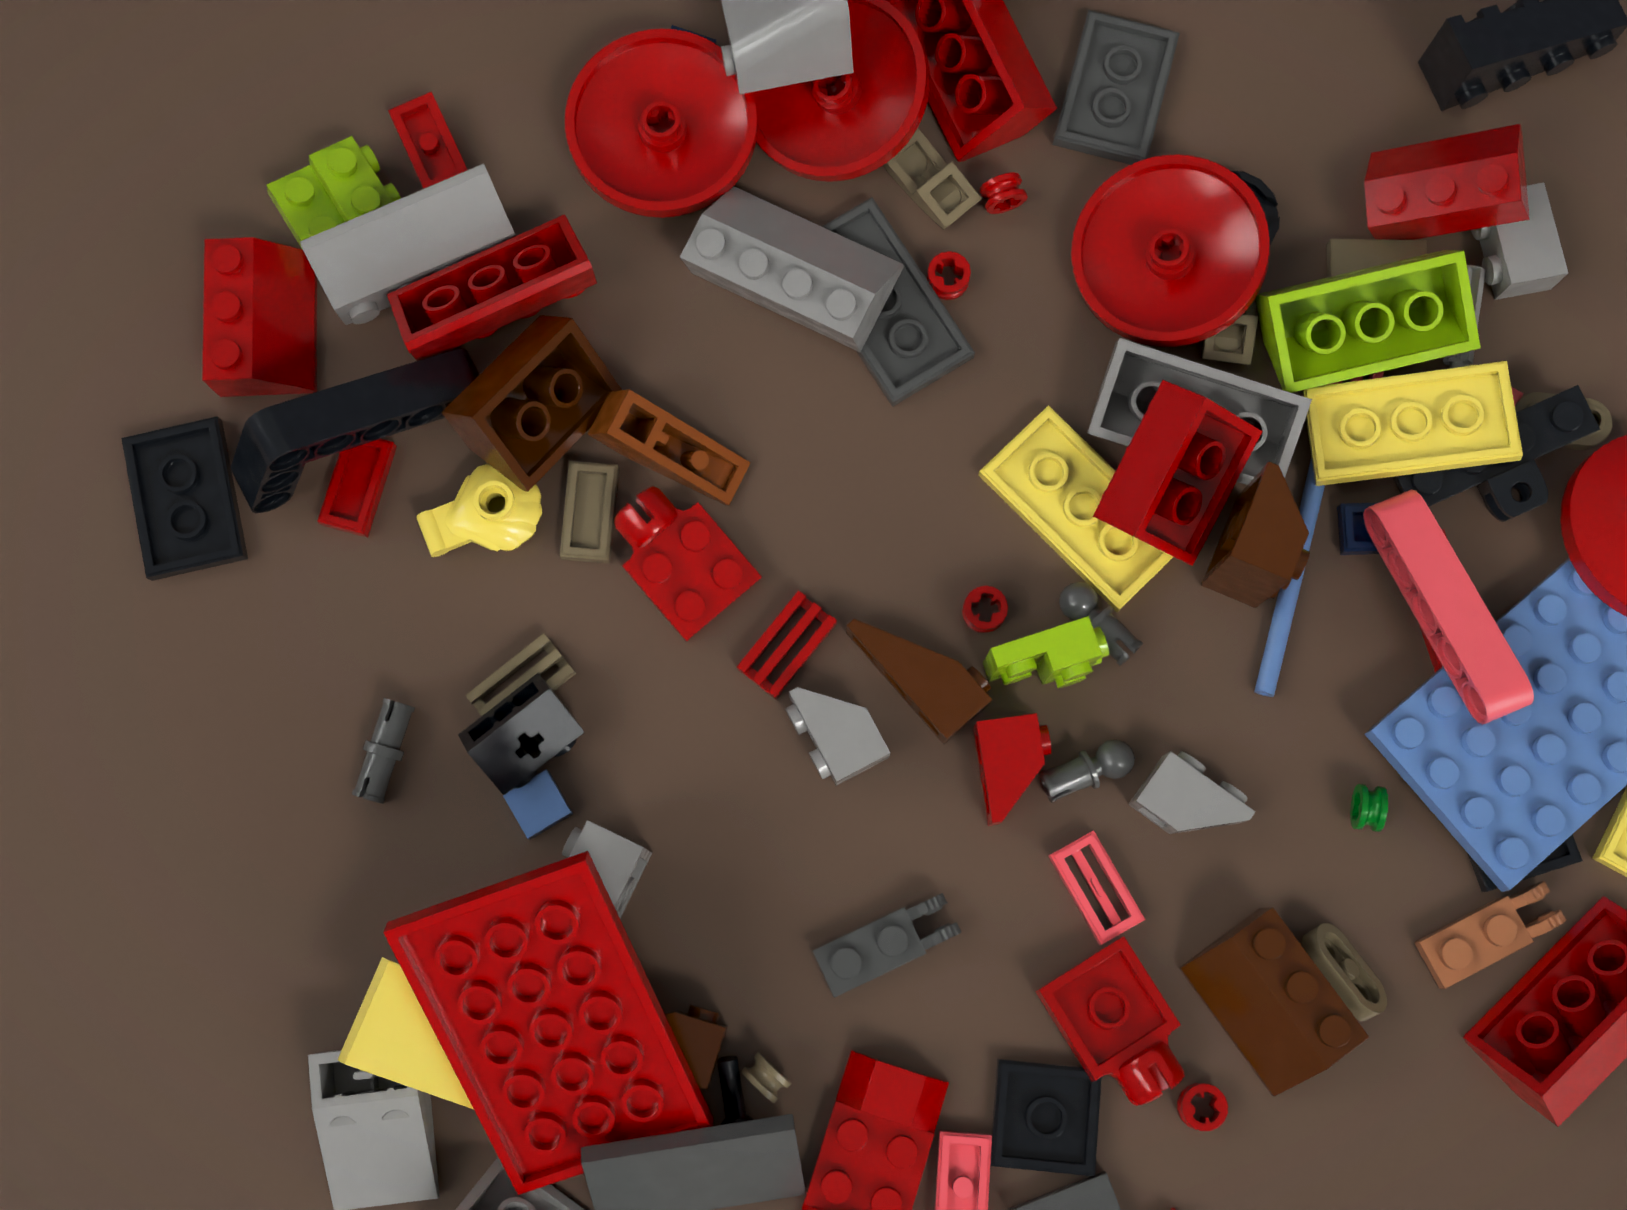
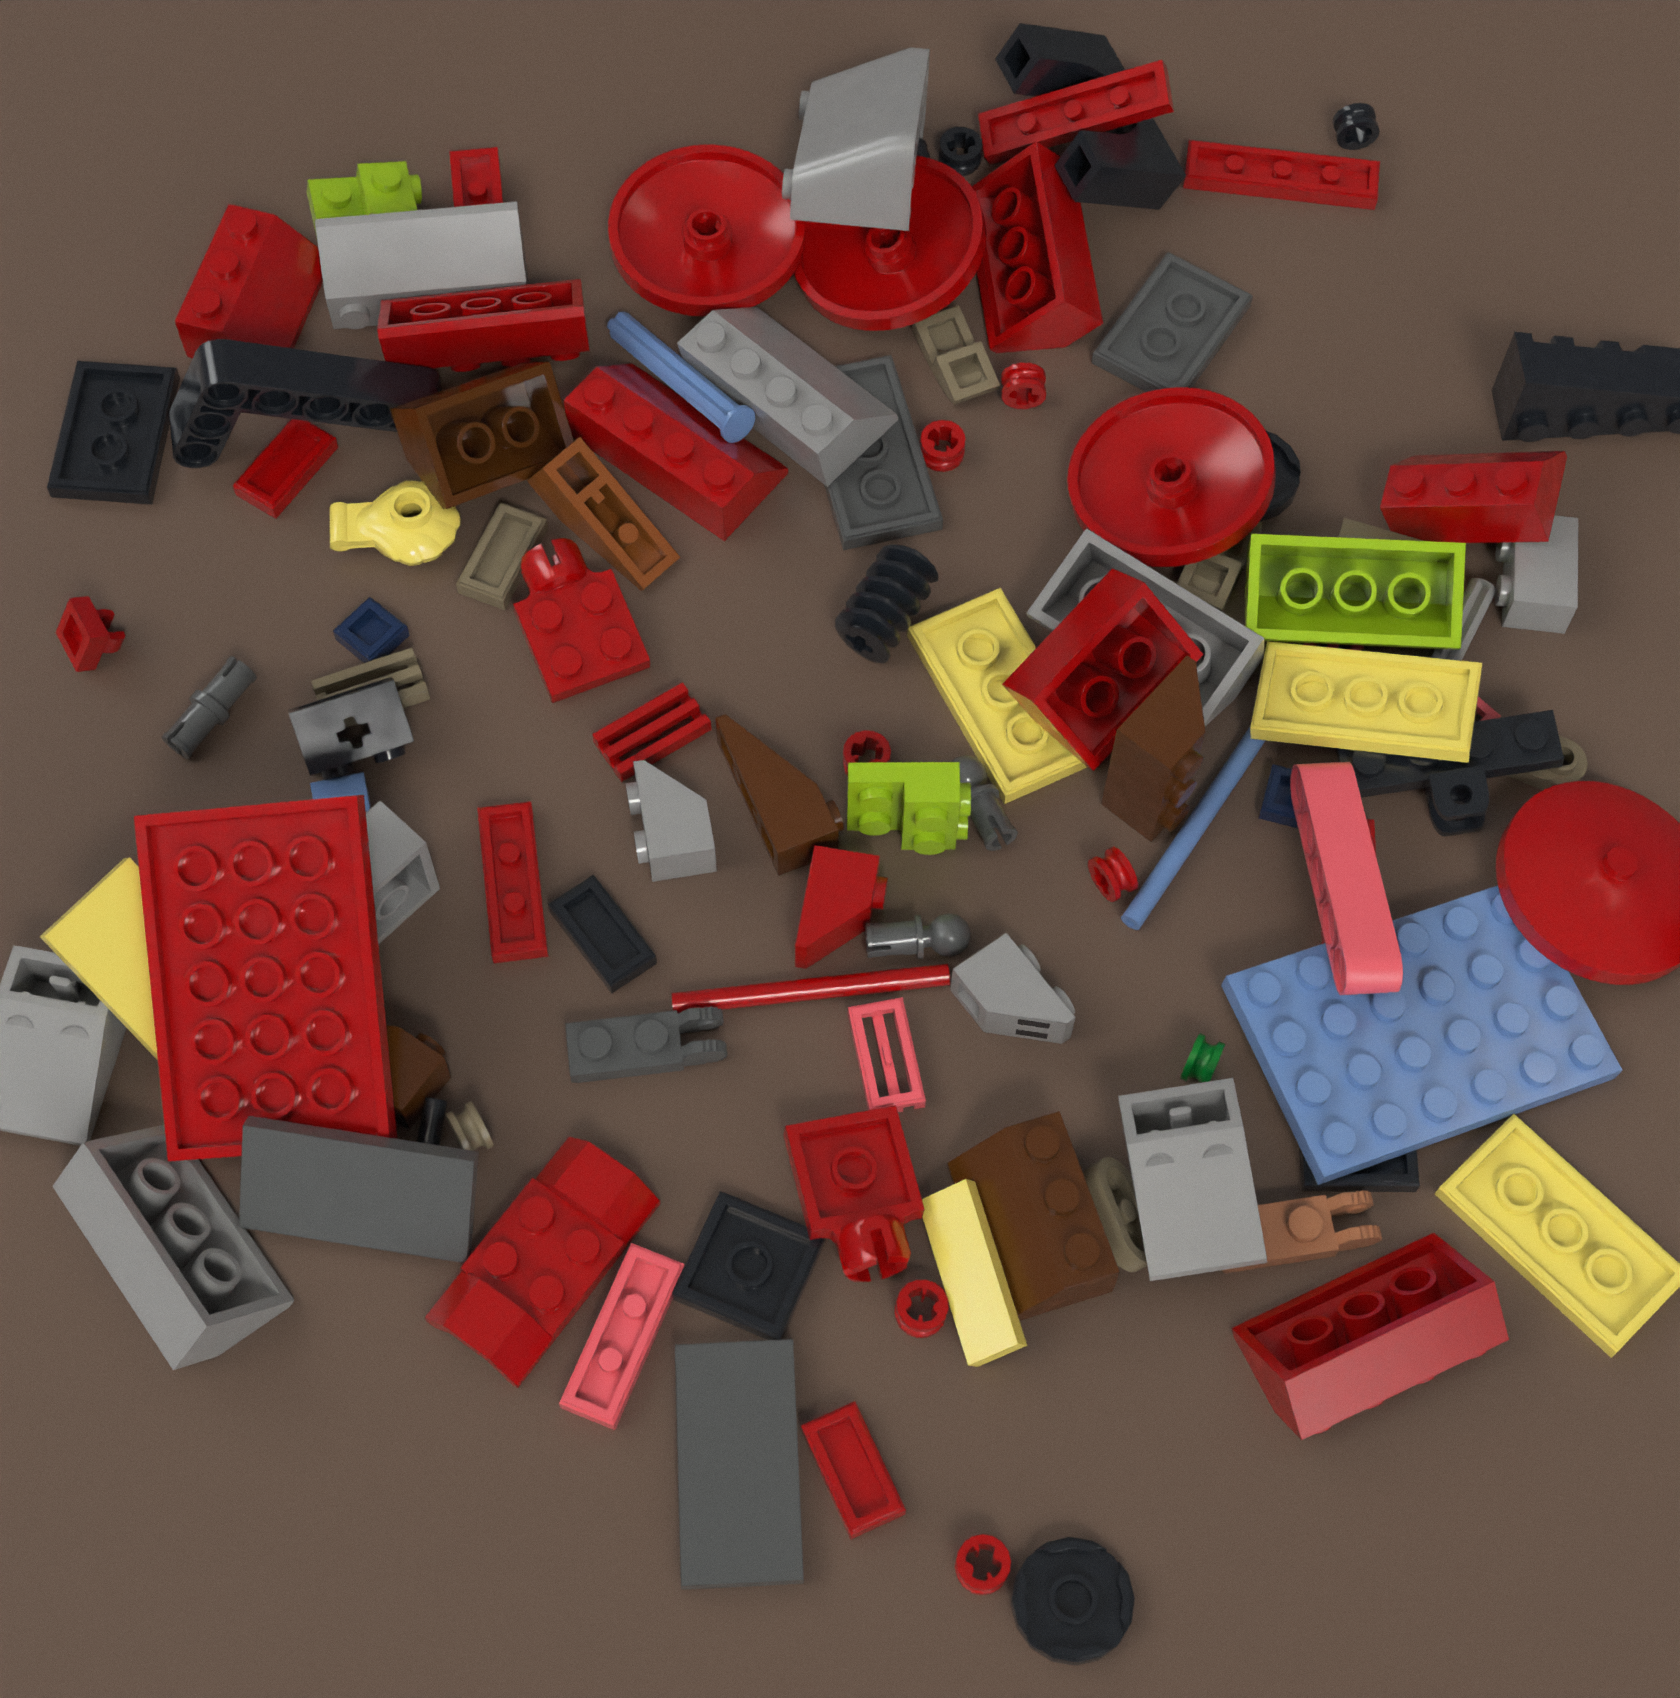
camera: 15 degrees right, 15 degrees down
(241, 716) = (85, 633): none -> red tile
(499, 626) = (371, 632): none -> dark blue tile
(690, 283) = (732, 419): none -> medium blue axle
(706, 353) = (670, 447): none -> red slope
(715, 828) = (512, 882): none -> red tile
(812, 852) = (602, 934): none -> black tile
(951, 456) = (885, 602): none -> black piece
(1010, 845) = (814, 988): none -> red piece
(1237, 656) = (1112, 874): none -> red bush
(1237, 1065) = (972, 1273): none -> light yellow tile
(1402, 931) = (1192, 1179): none -> light grey slope

